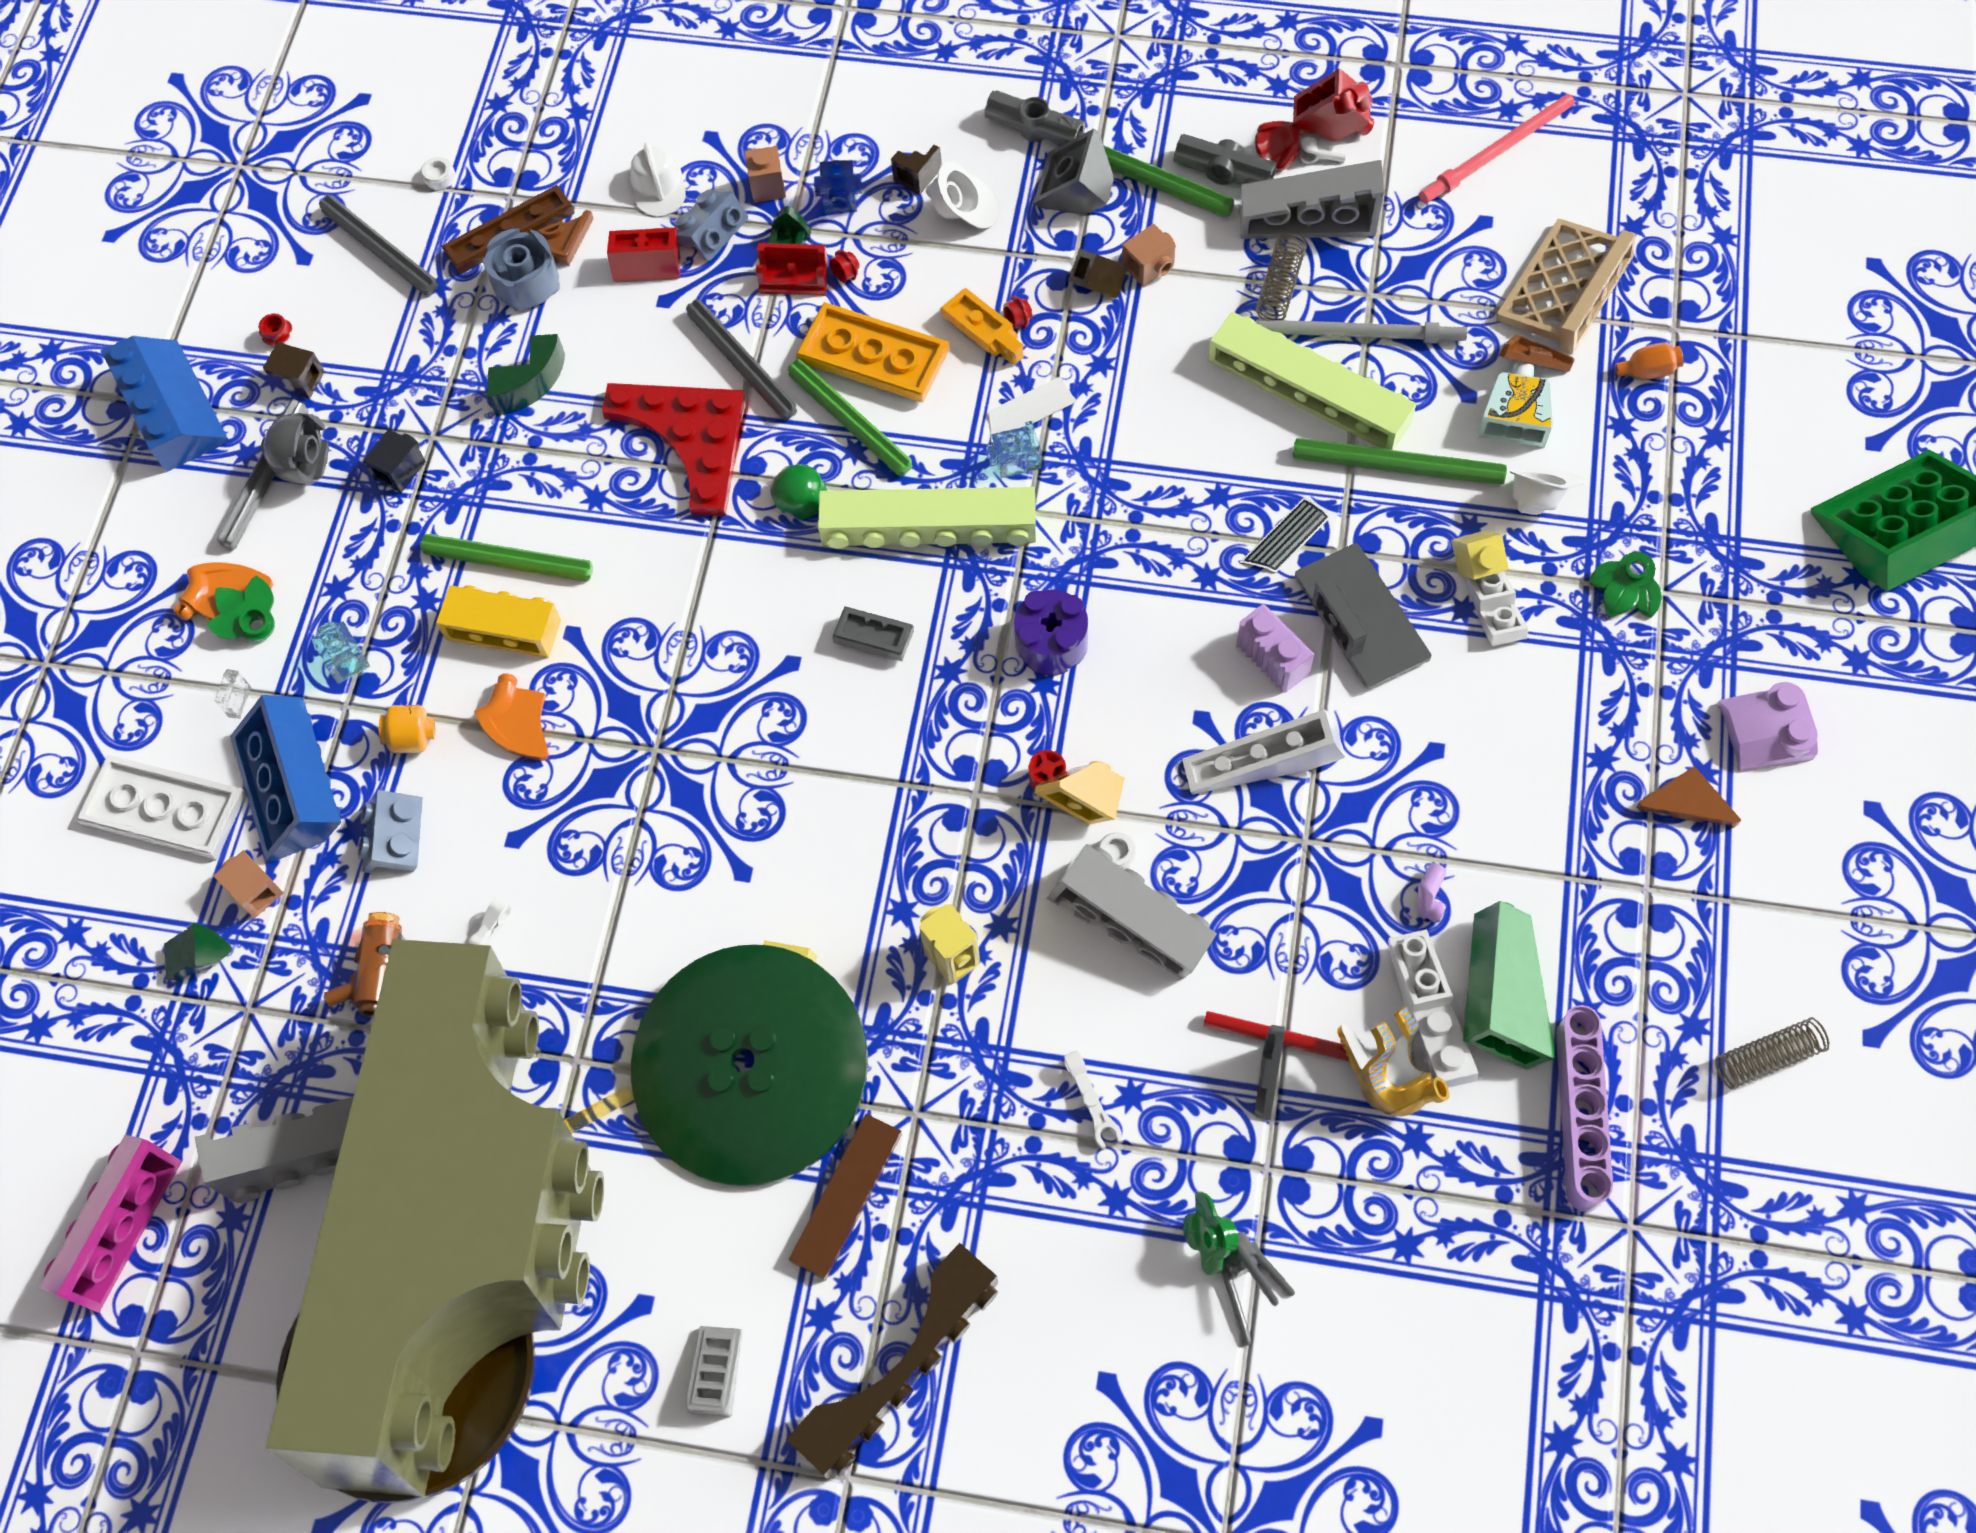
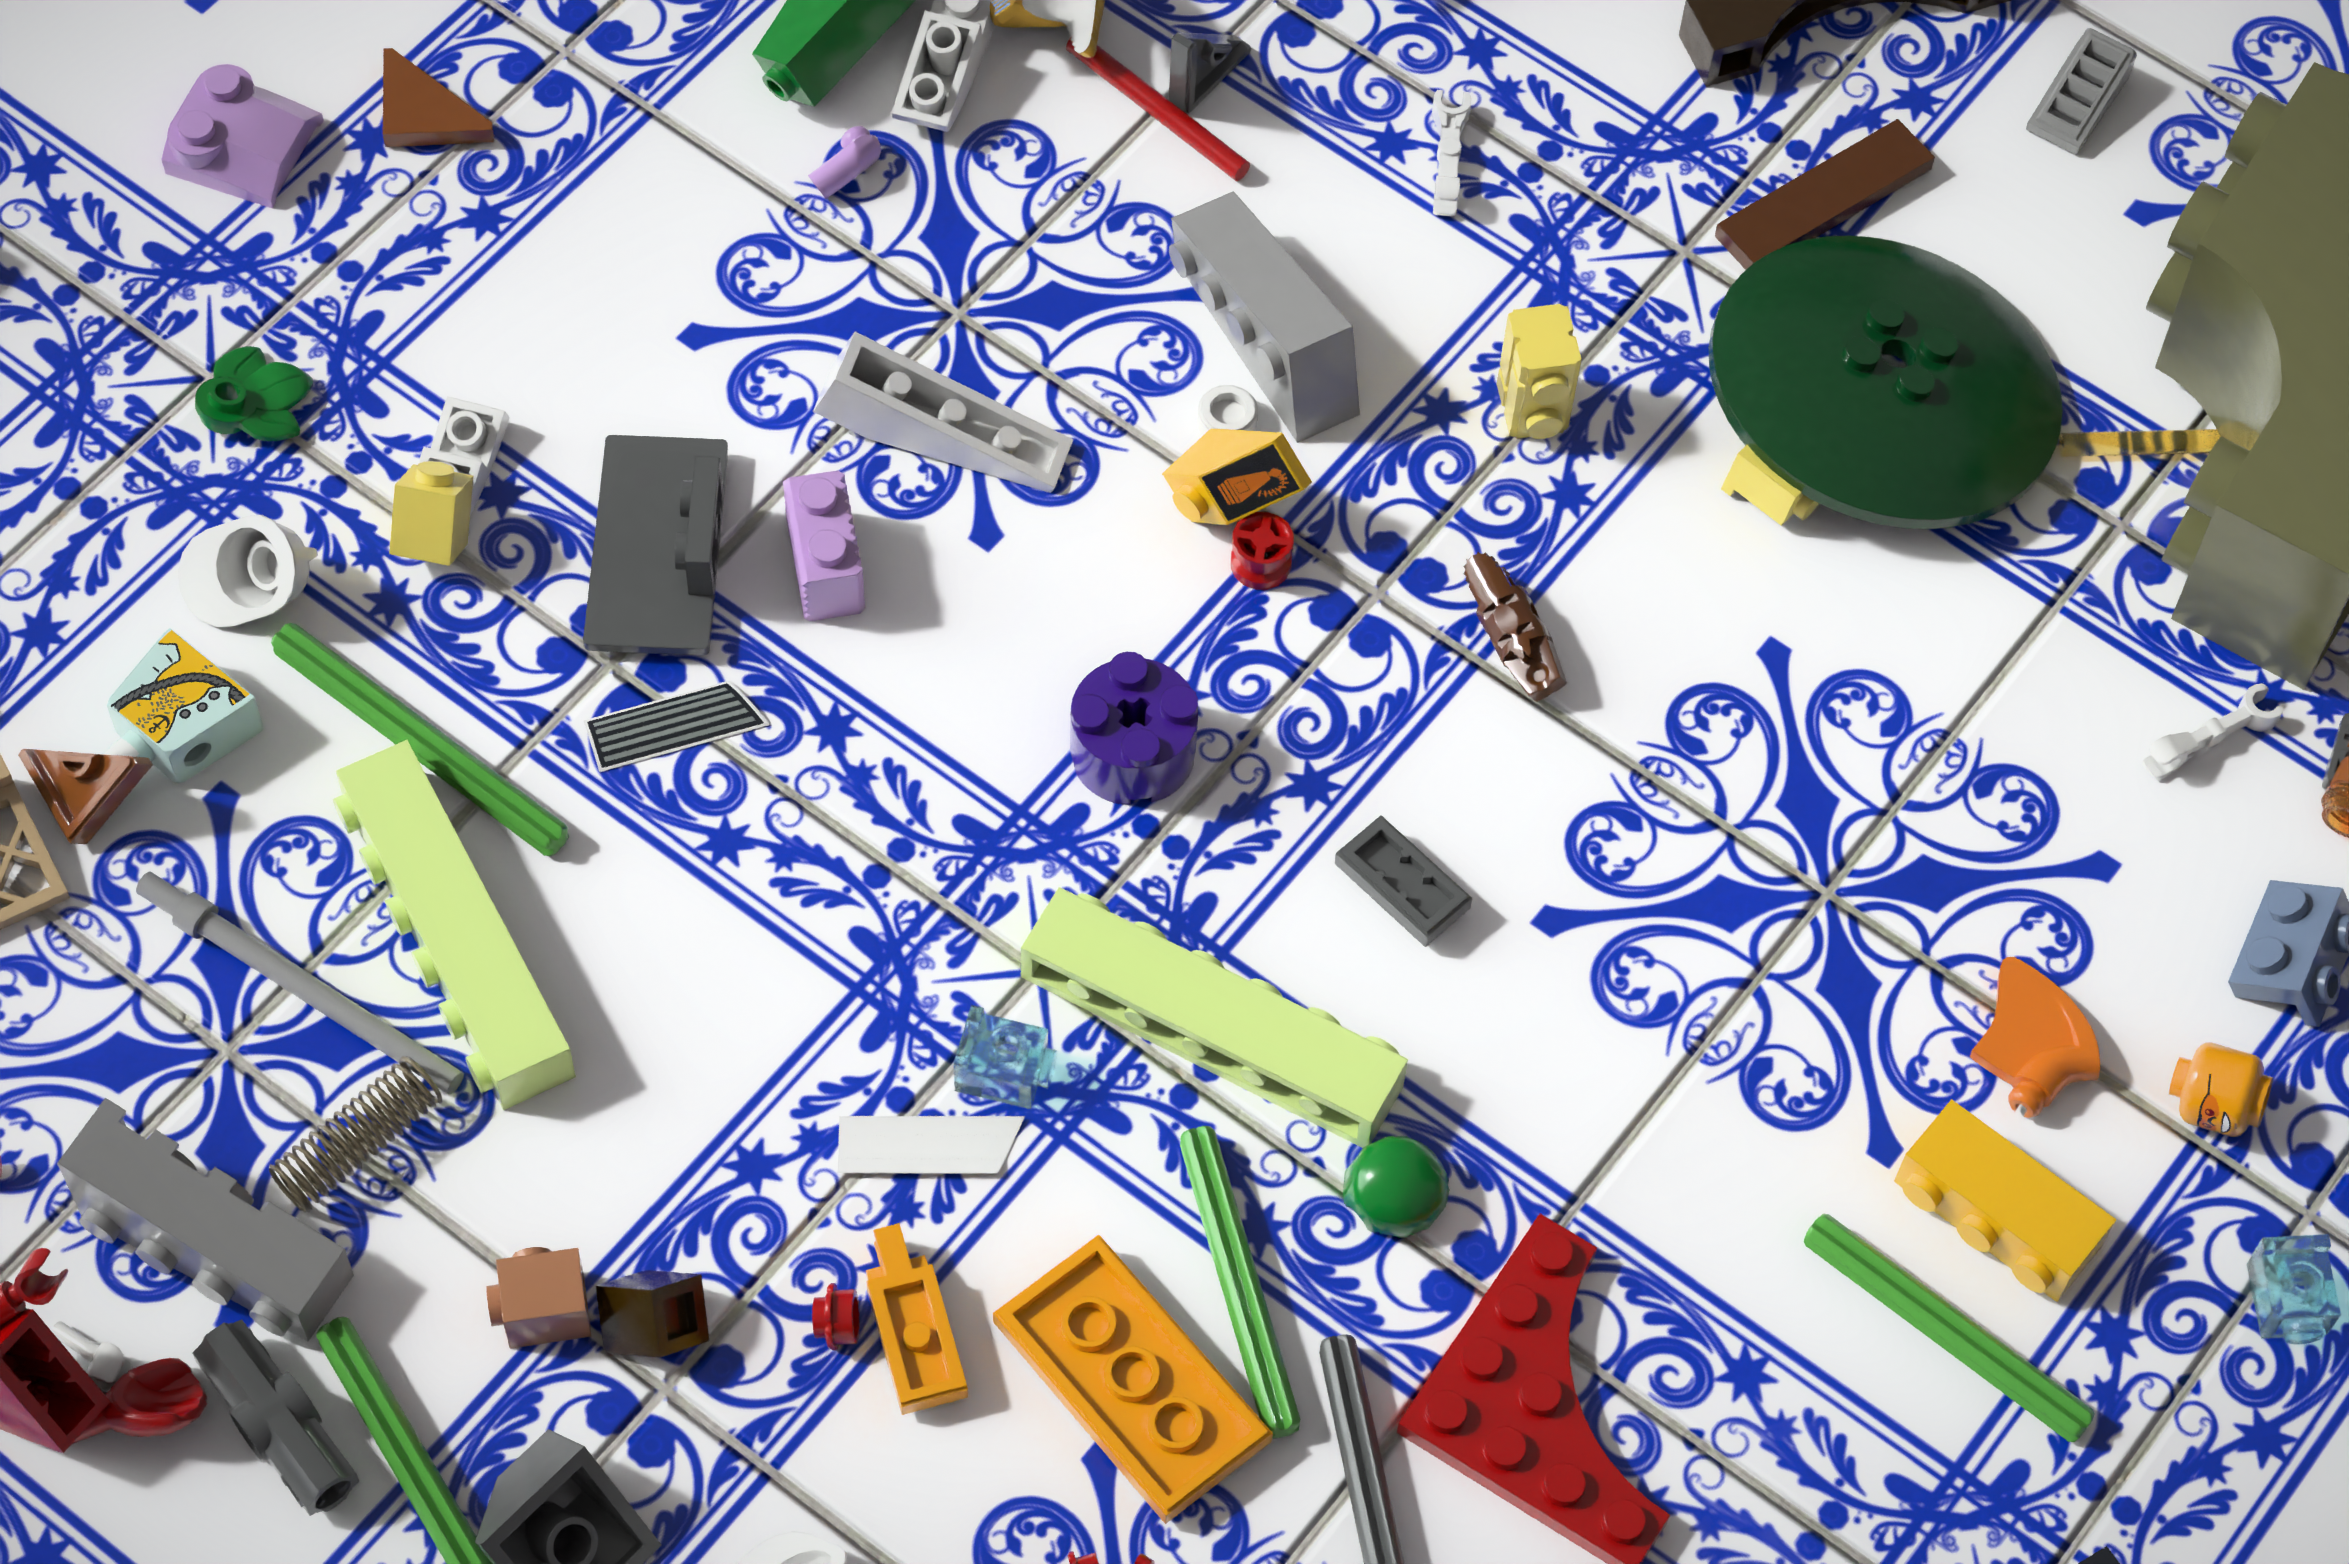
camera: 160 degrees left, 5 degrees down
(888, 800) = (1514, 627): none -> reddish brown hinge

